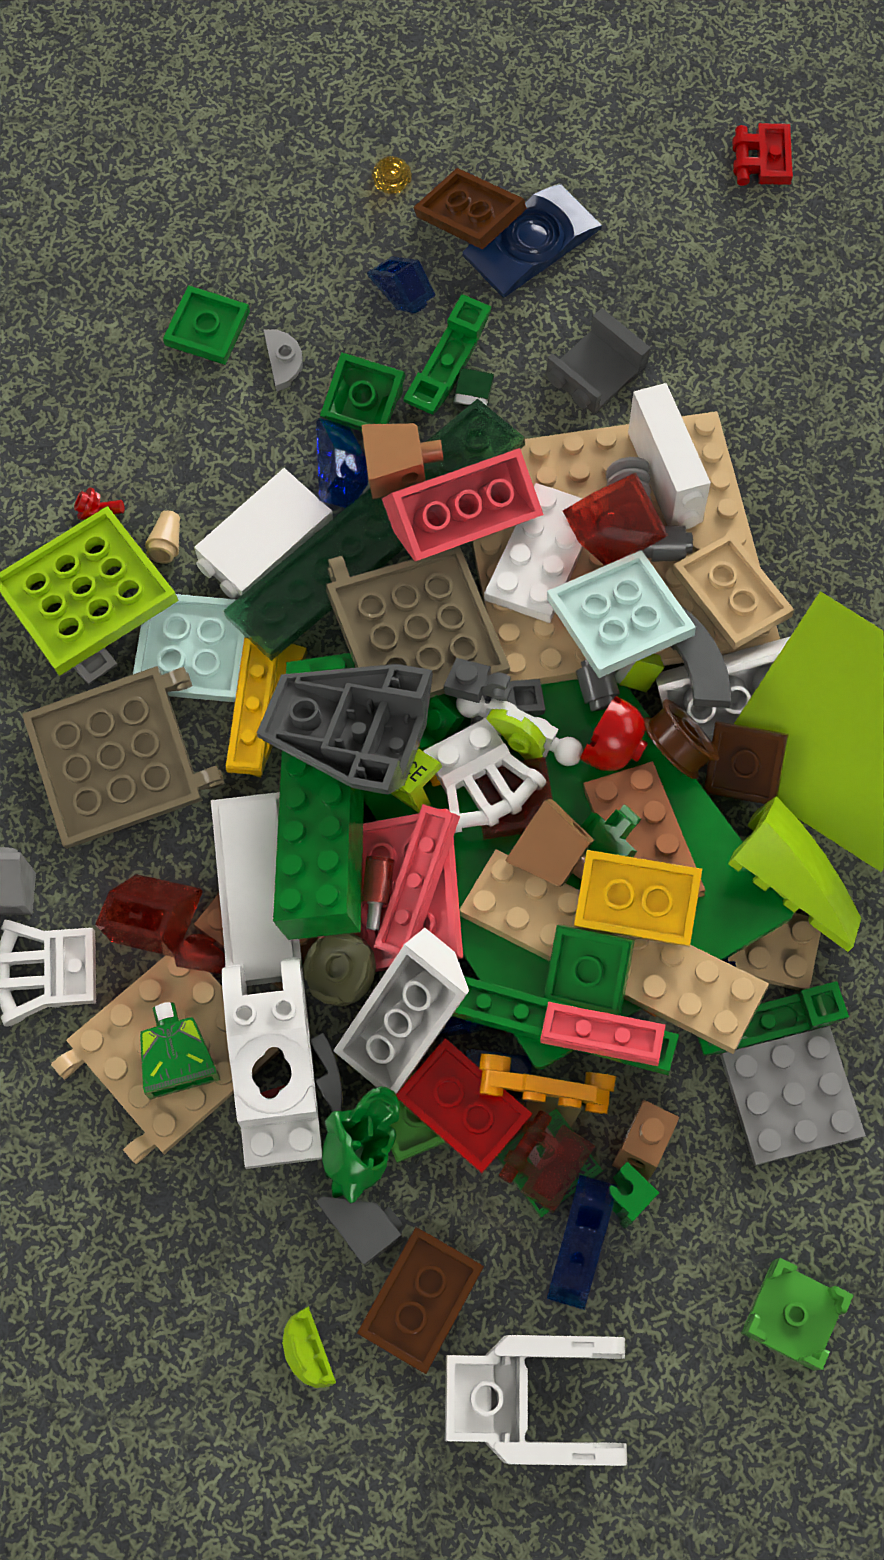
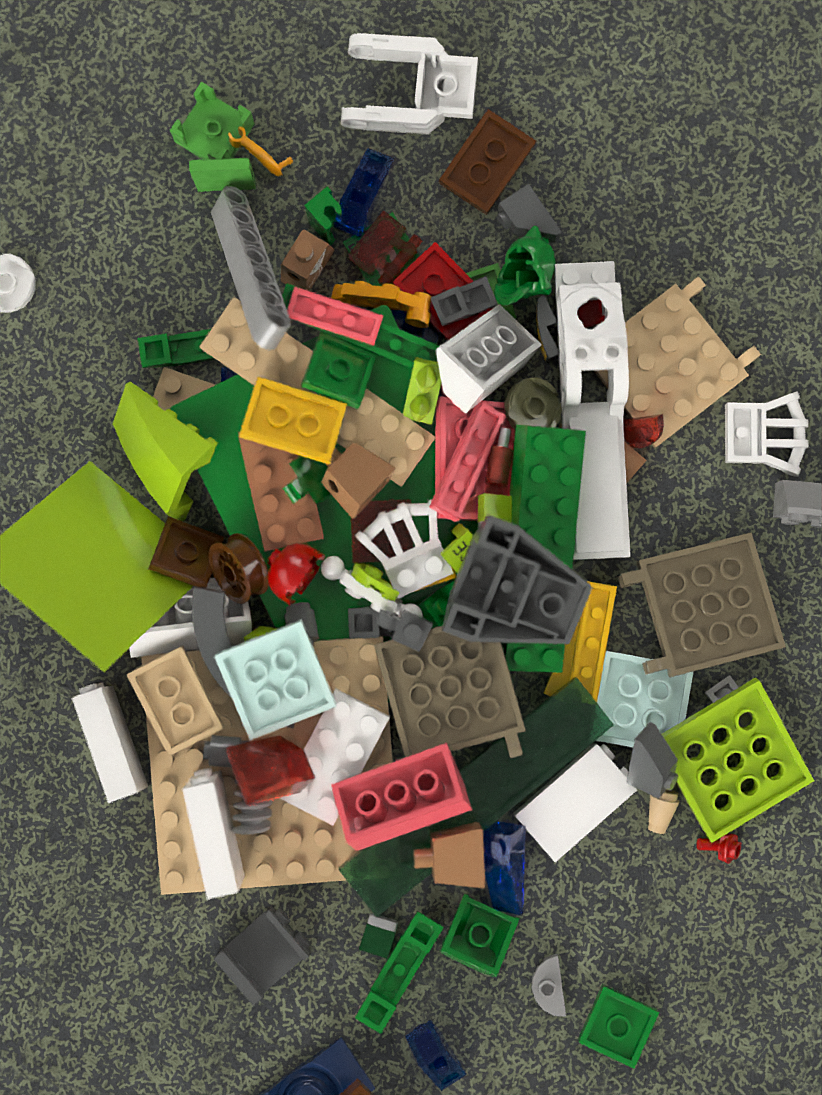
camera: 175 degrees left, 15 degrees up
(148, 914) = (681, 469): clear red slope -> none
(174, 1054) = (664, 349): green torso -> none
(177, 567) = (652, 763): none -> dark grey slope
(305, 1351) = (574, 135): lime plate -> none
(379, 825) = (494, 505): none -> lime piece
(437, 1091) = (464, 301): none -> dark grey slope
(480, 956) = (423, 391): none -> lime tile
(719, 1101) = (250, 268): none -> light grey beam
(728, 1280) = (258, 152): none -> light orange piece
(773, 1241) = (218, 173): none -> bright green tile
(792, 1096) = (186, 286): light grey plate -> none
(798, 544) = (109, 741): none -> white brick

